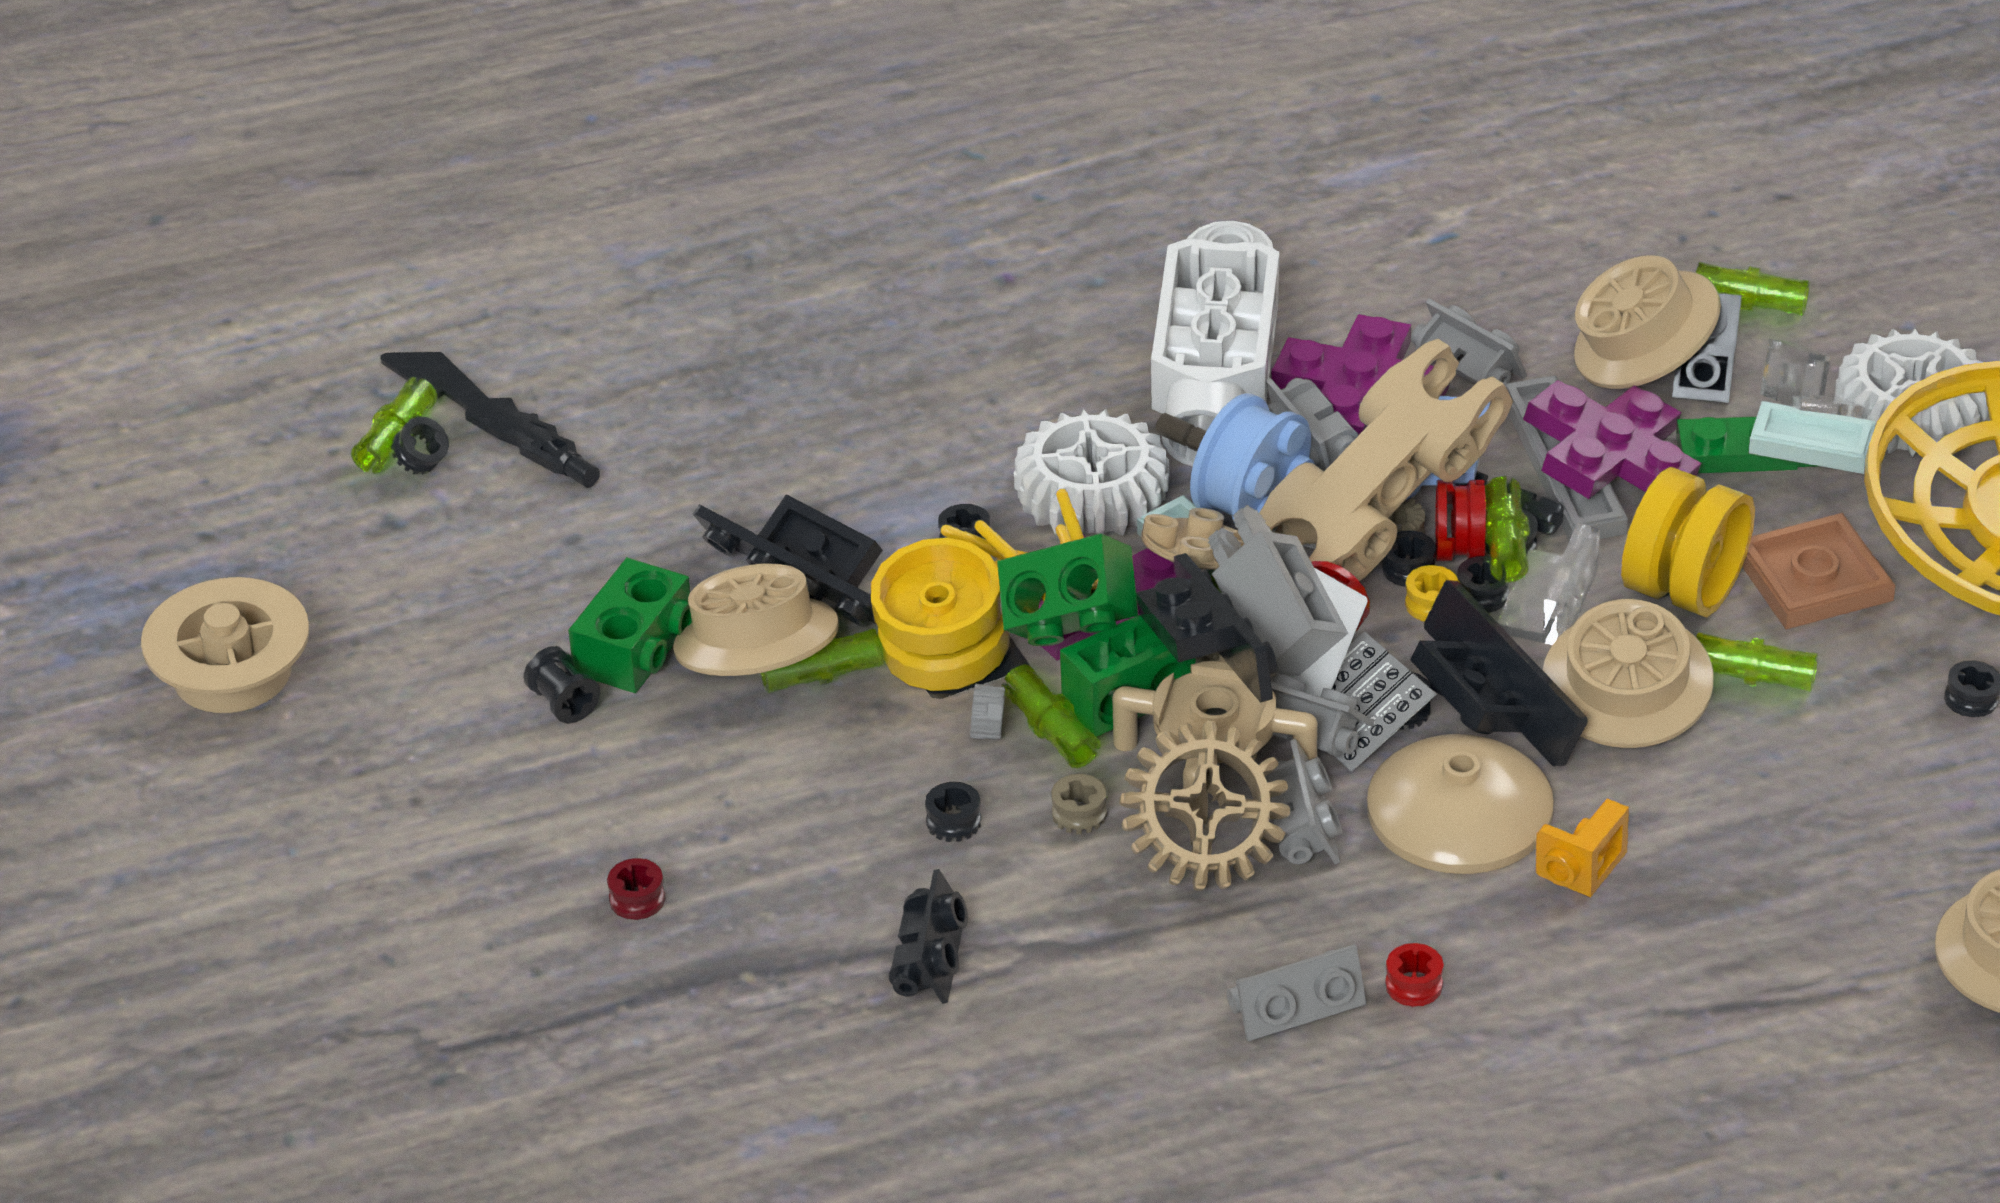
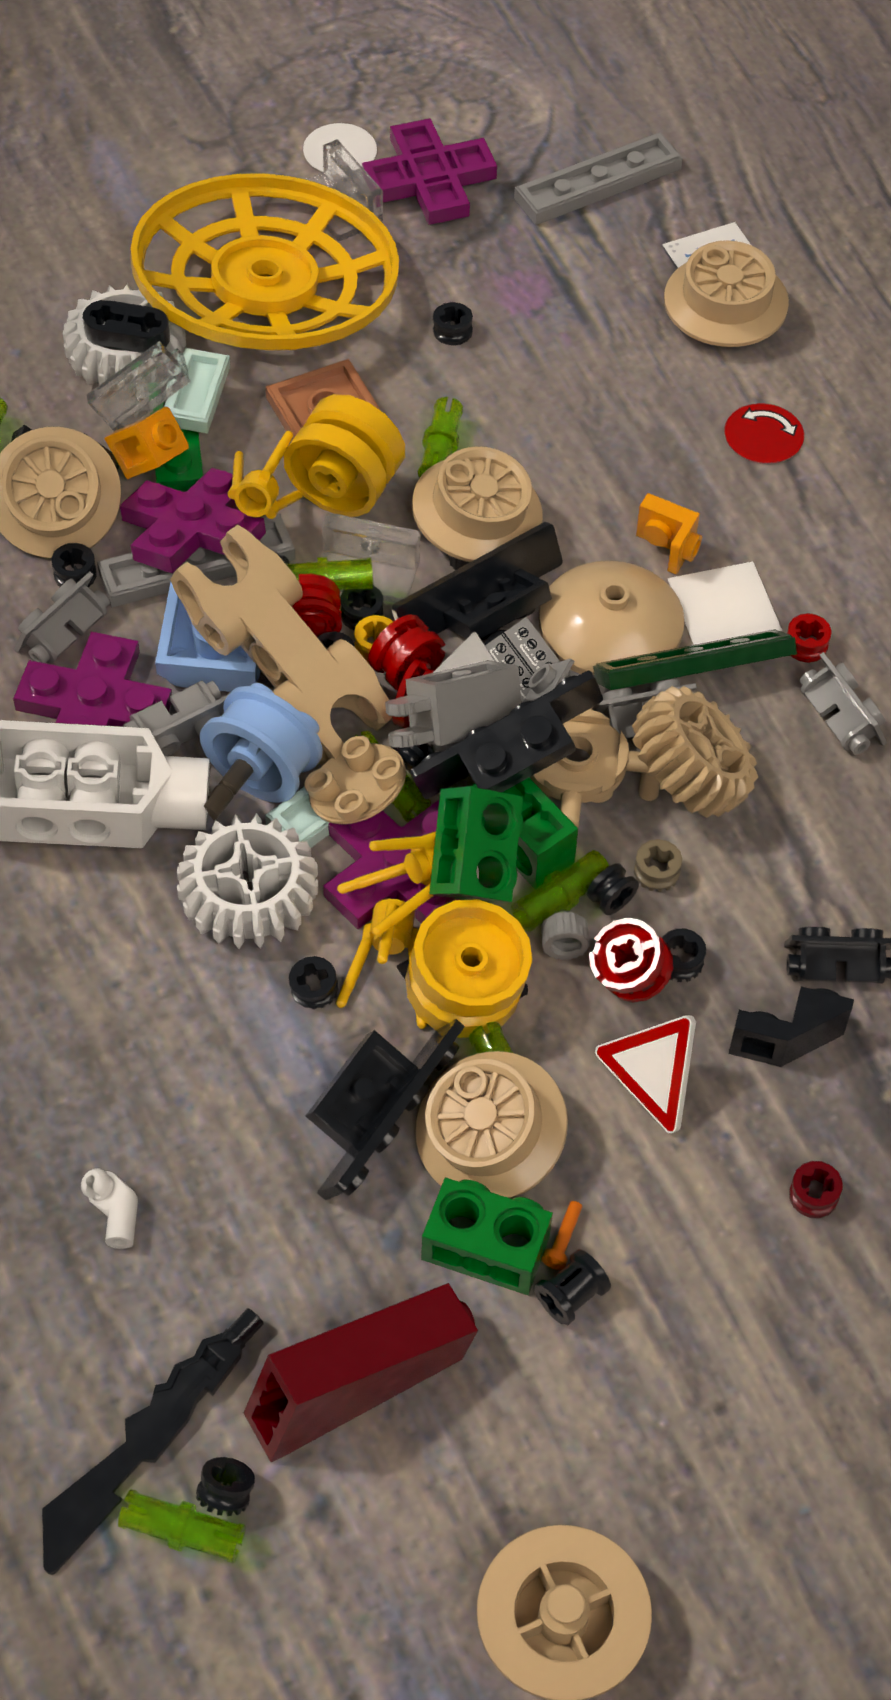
camera: 100 degrees left, 15 degrees up
(505, 517) = (356, 1368): none -> dark red slope
(629, 695) = (555, 1256): none -> orange piece
(731, 392) = (114, 1200): none -> white arm
(786, 769) = (654, 1067): none -> piece
(833, 882) = (817, 1020): none -> black slope
(937, 750) = (630, 959): none -> red wheel
(1043, 754) = (612, 889): none -> black bush
(1369, 846) = (694, 659): none -> dark green tile
(1397, 597) = (401, 645): none -> red wheel
(1484, 913) = (724, 603): none -> white sticker
(1552, 357) = (69, 555): none -> black bush
(1624, 462) = (259, 488): none -> yellow plant
(1717, 393) = (147, 443): none -> light orange bracket
(1789, 985) = (764, 433): none -> red sticker
(1885, 360) = (125, 325): none -> black beam

